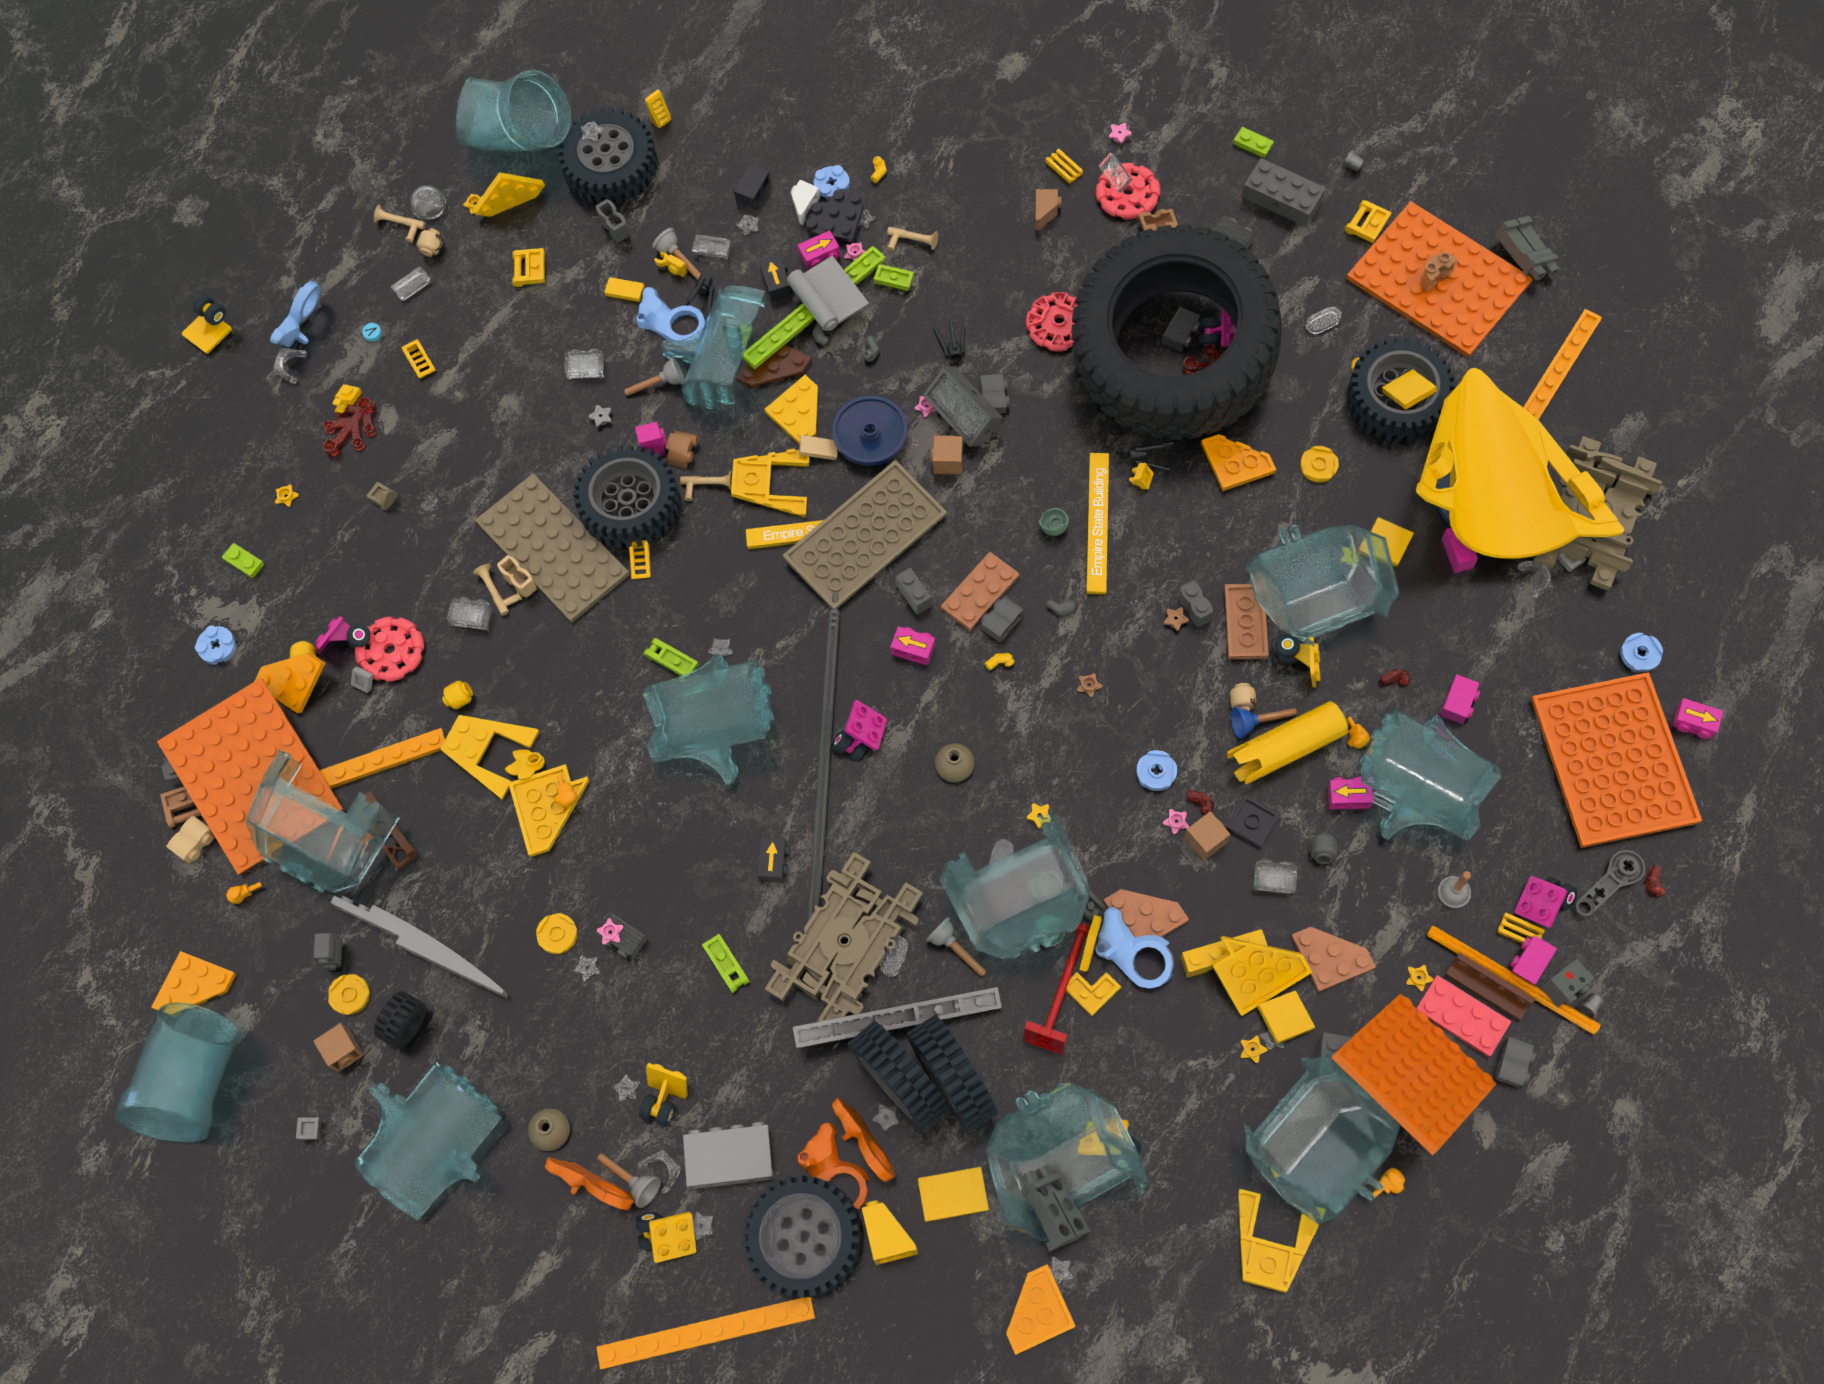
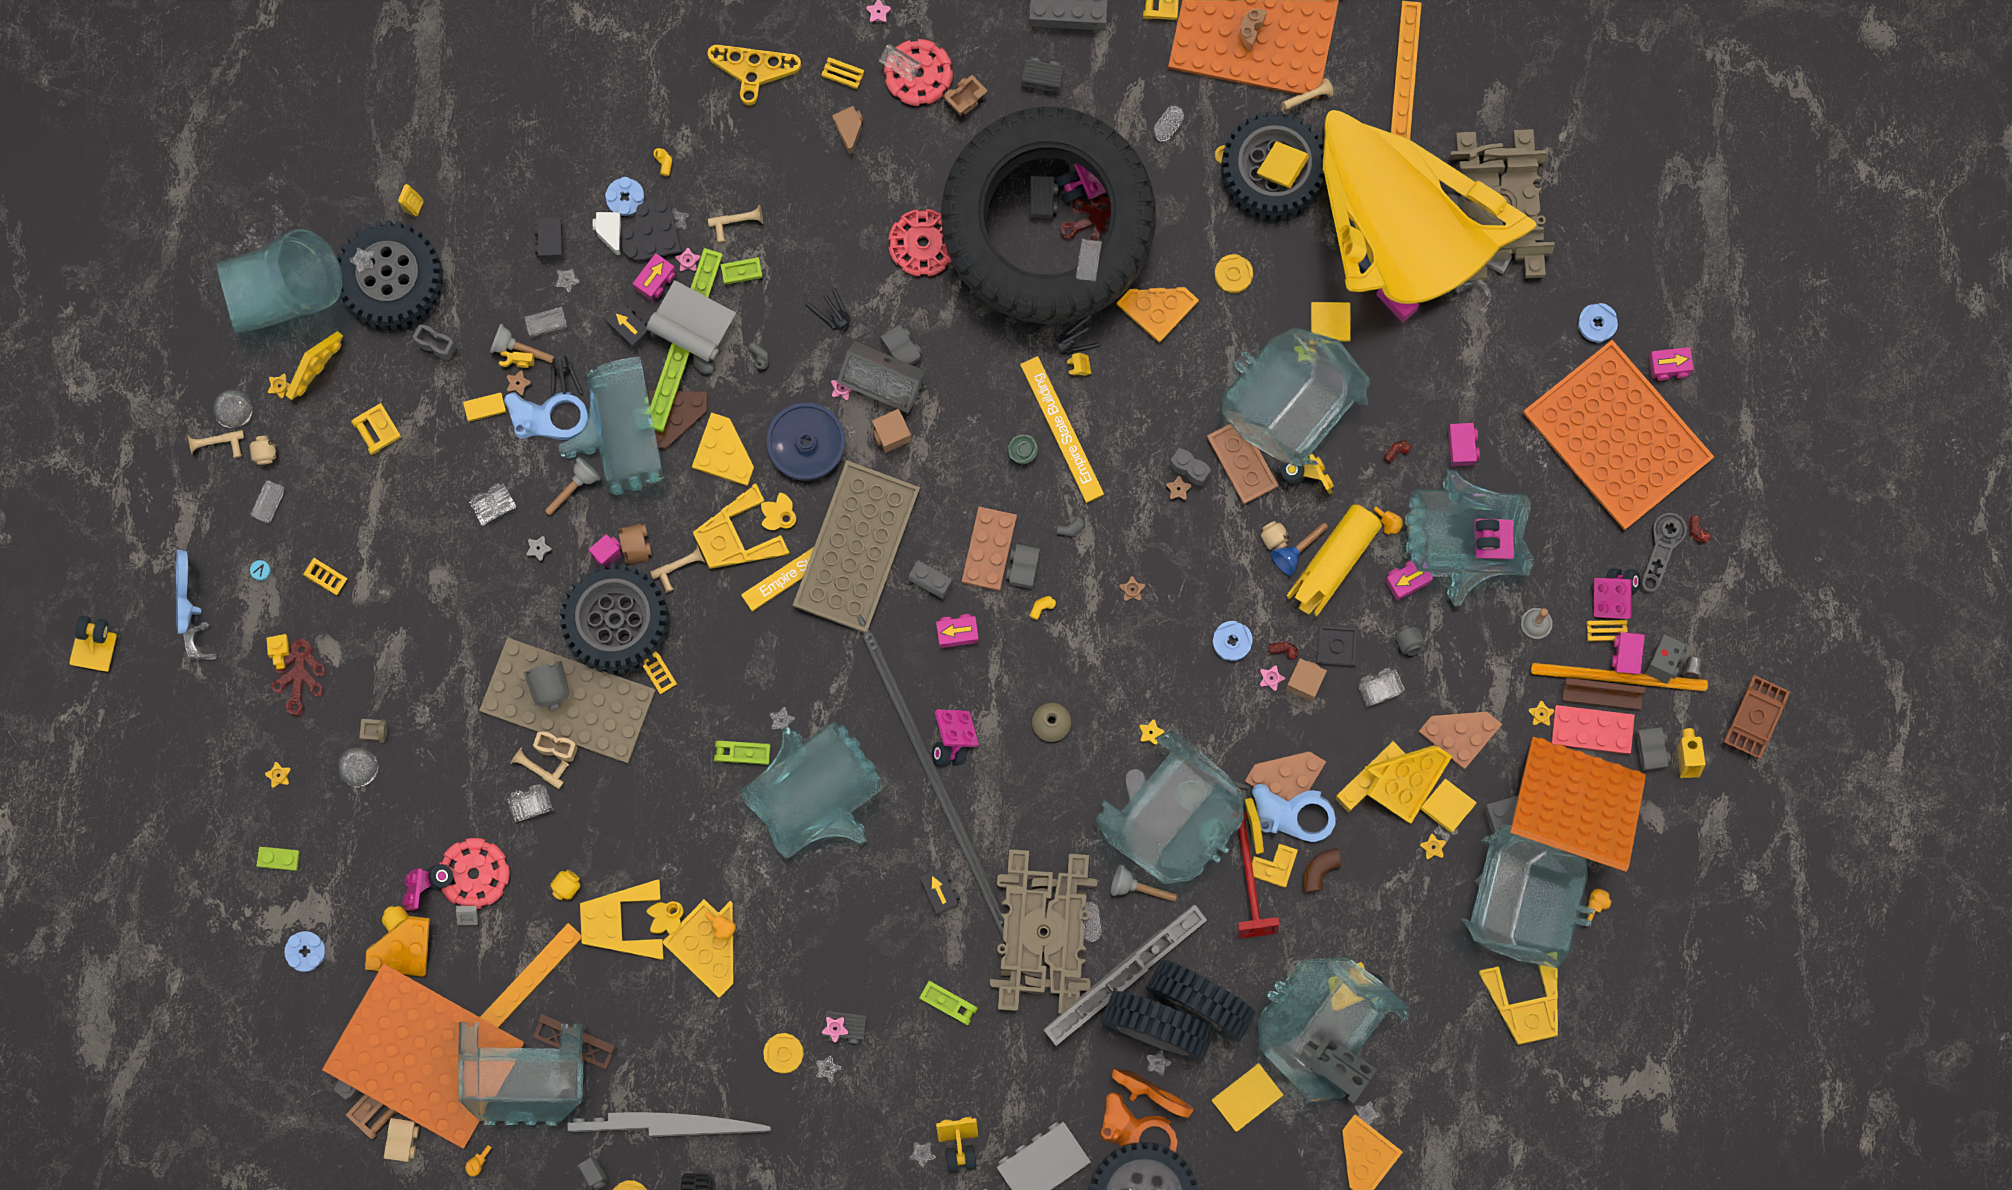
camera: 35 degrees left, 10 degrees up
(350, 518) = (358, 767): none -> clear cylinder
(538, 520) = (548, 685): none -> dark grey cylinder
(661, 287) = (519, 377): none -> medium nougat plate
(814, 478) = (777, 511): none -> yellow plate
(817, 447) = (764, 481): tan tile -> none
(886, 1235) = (1211, 1159): yellow slope -> none
(998, 136) = (742, 67): none -> yellow beam
(1130, 1013) = (1318, 868): none -> reddish brown cylinder
(1189, 371) = (1088, 260): none -> clear tile
(1449, 790) = (1494, 539): none -> dark pink plate
(1478, 349) = (1324, 88): none -> tan piece
(1550, 1086) = (1690, 755): none -> yellow torso
(1635, 1083) = (1756, 716): none -> dark orange plate

